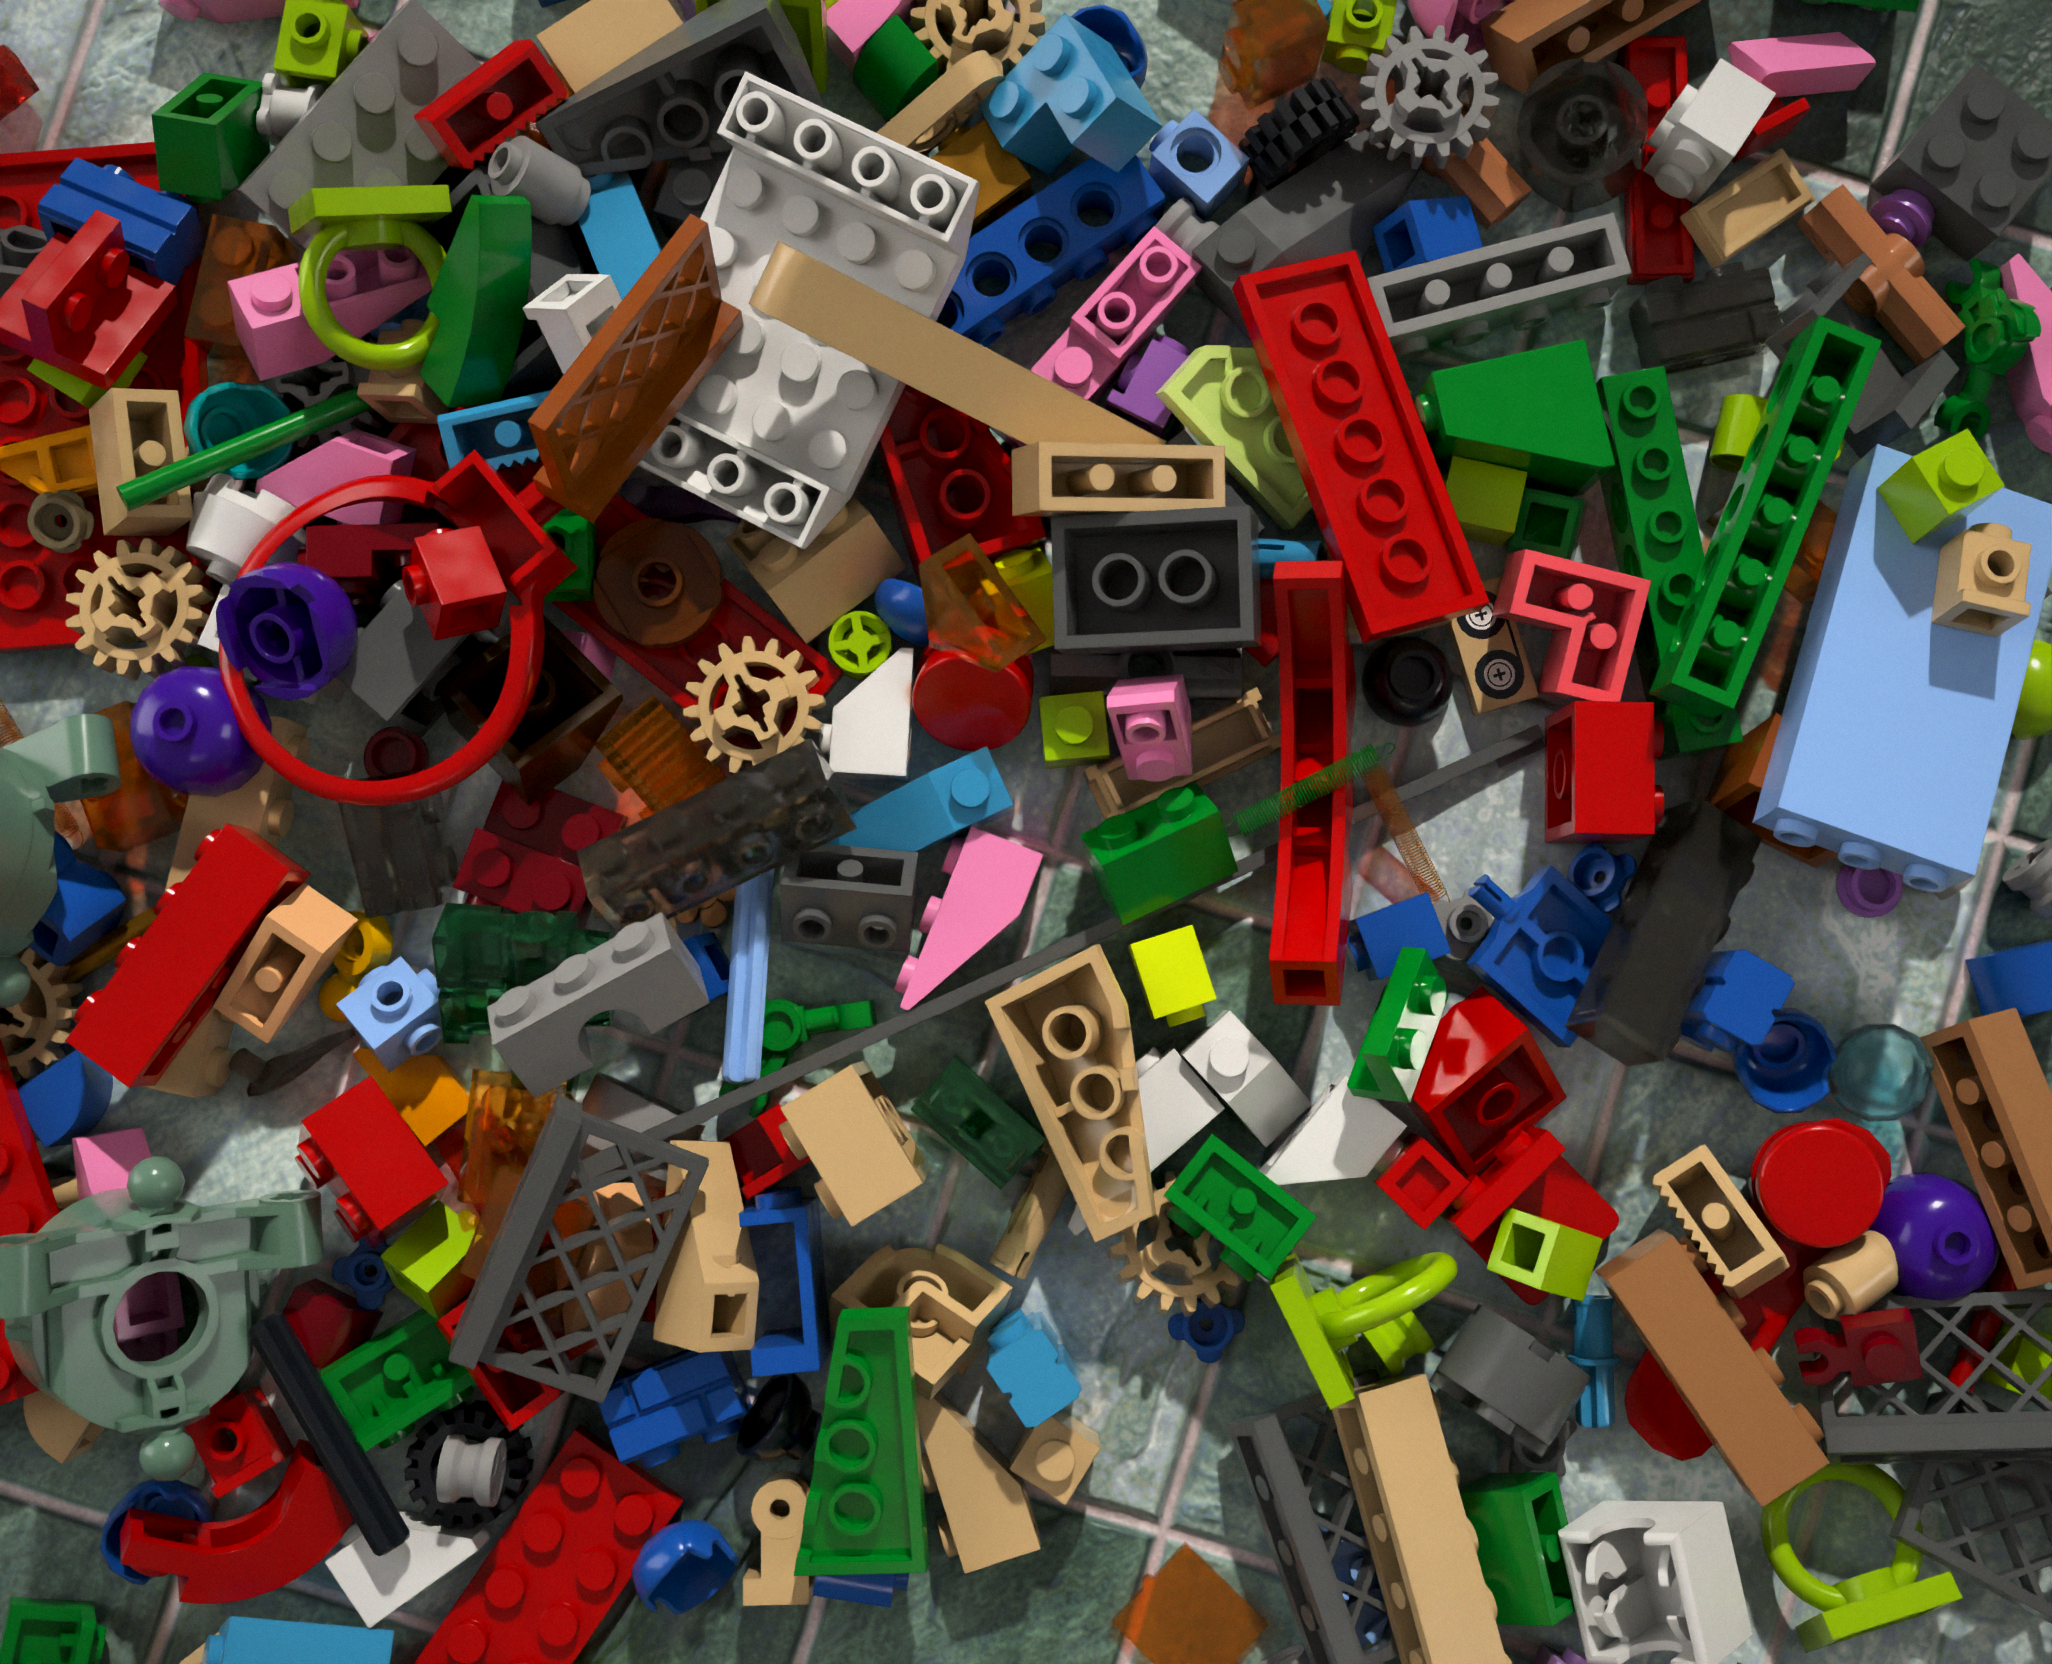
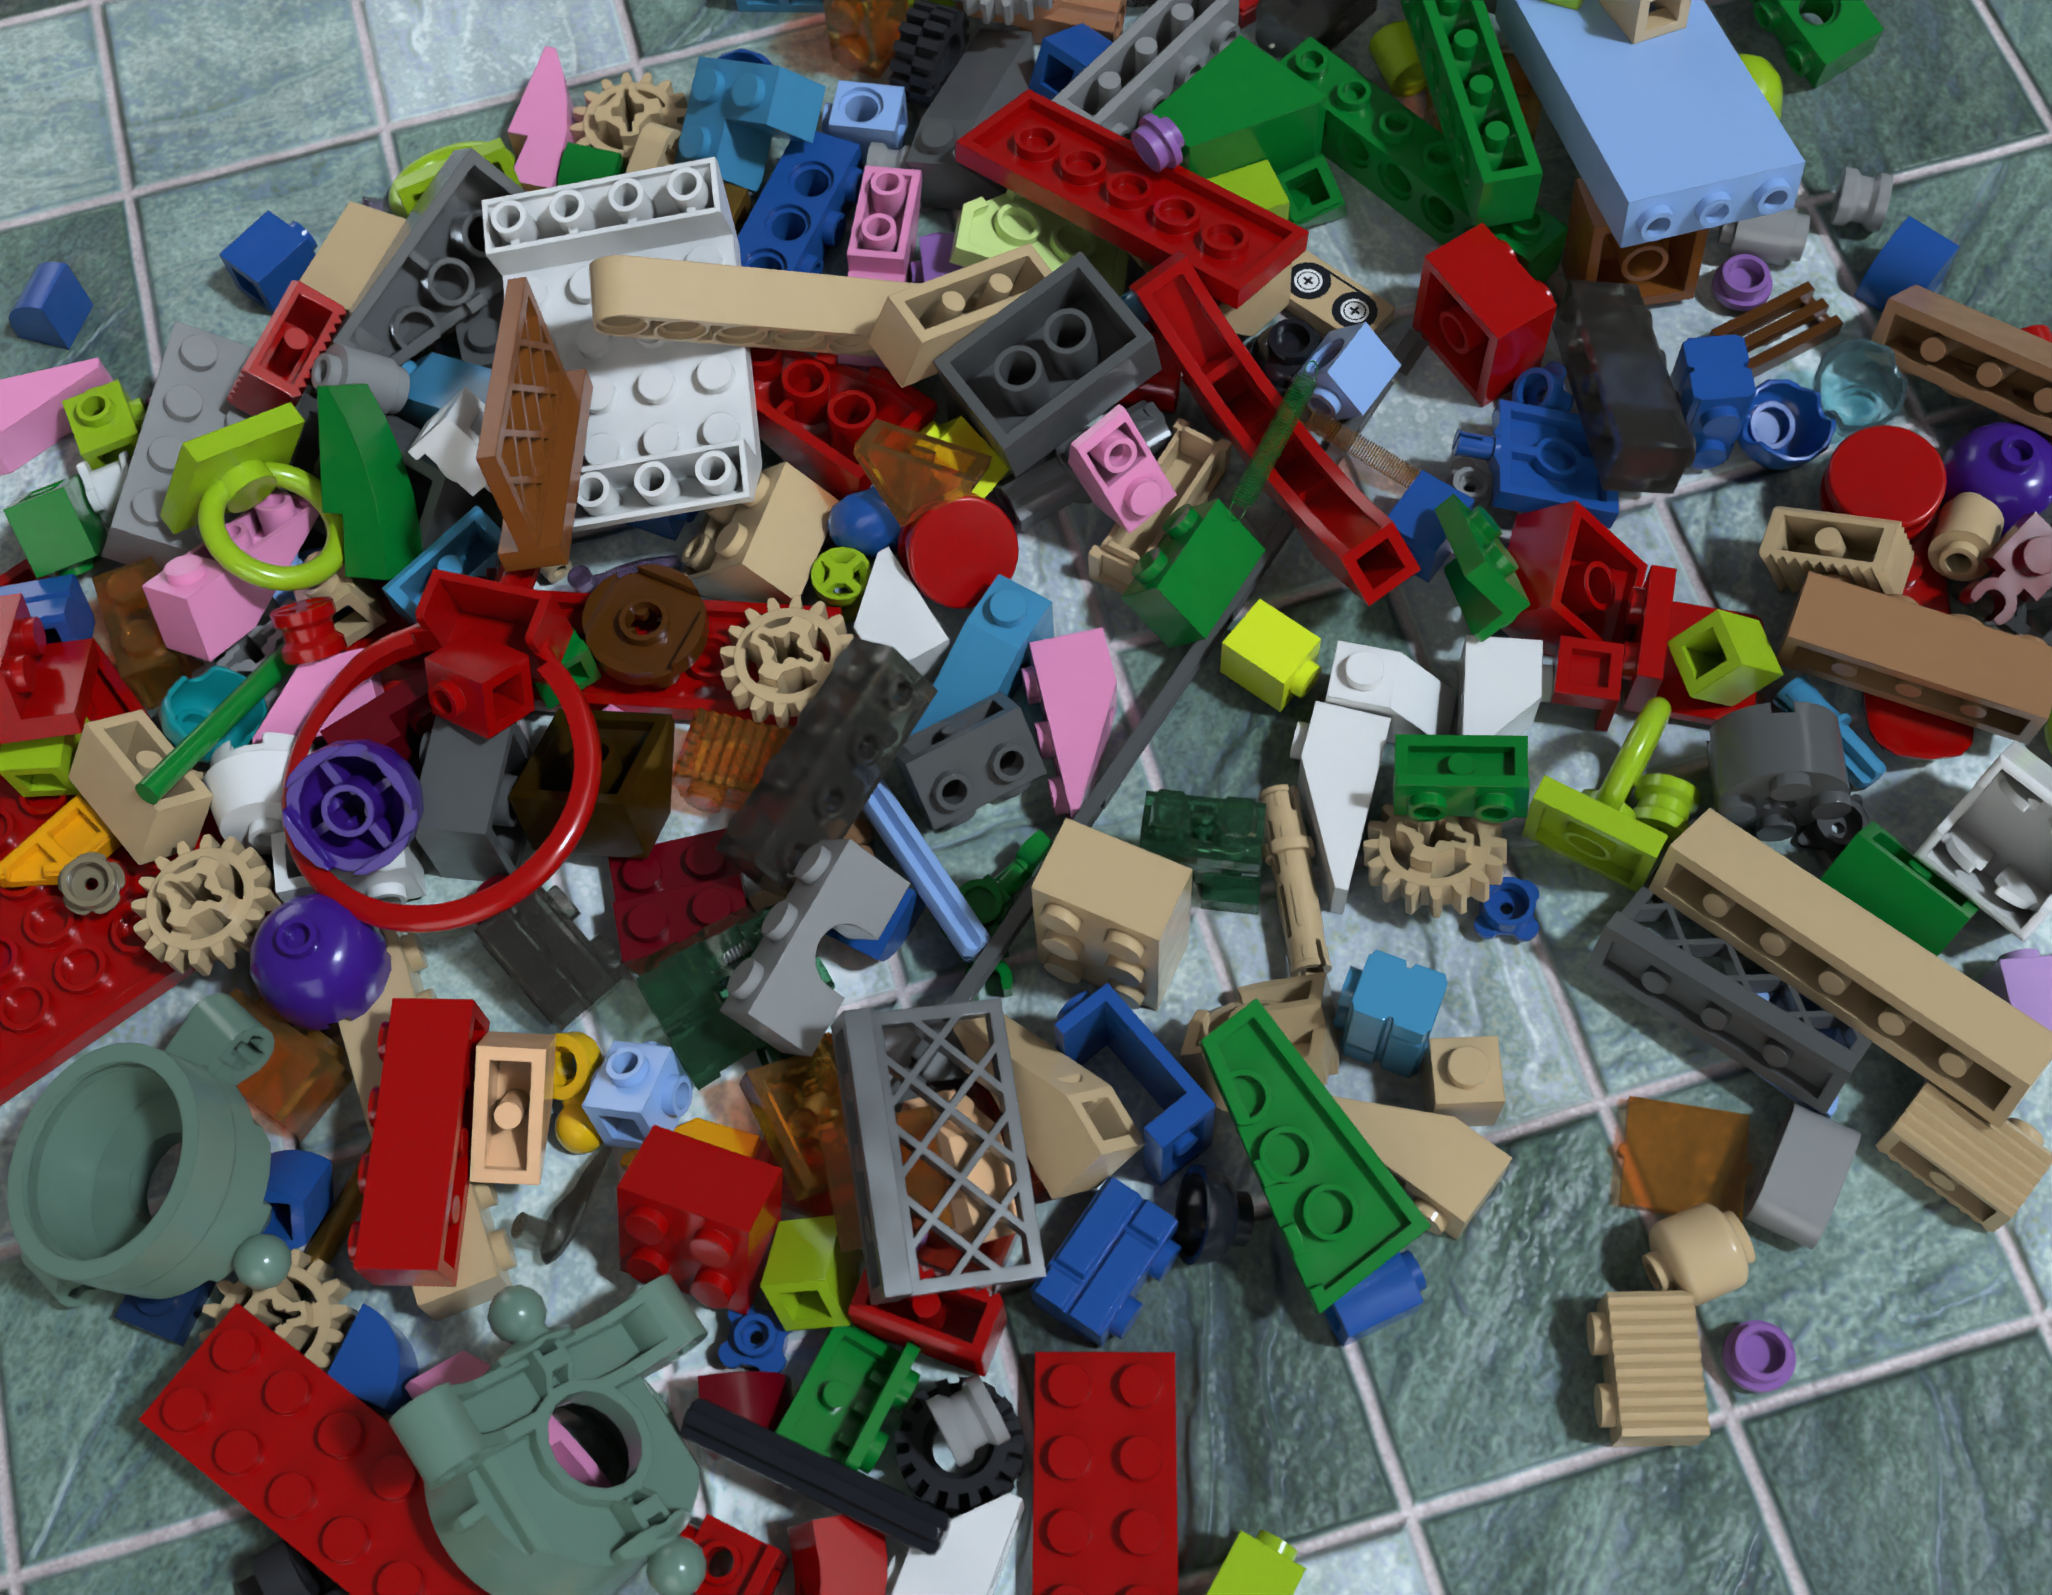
camera: 30 degrees left, 20 degrees down
(353, 413) = (308, 630): none -> red wheel
(683, 1566) = (1218, 1397): blue hair -> none
(762, 1153) = (1041, 992): red panel -> none
(779, 1516) = (1275, 1299): tan leg -> none
(1073, 729) = (1057, 535): lime brick -> none
(1080, 1073) = (1241, 739): tan wedge -> none
(1418, 415) = (1158, 142): none -> medium lavender plate
(1437, 742) = (1350, 373): none -> light blue brick
(1590, 617) = (1379, 220): coral brick -> none
(1913, 956) = (1810, 310): none -> reddish brown tile

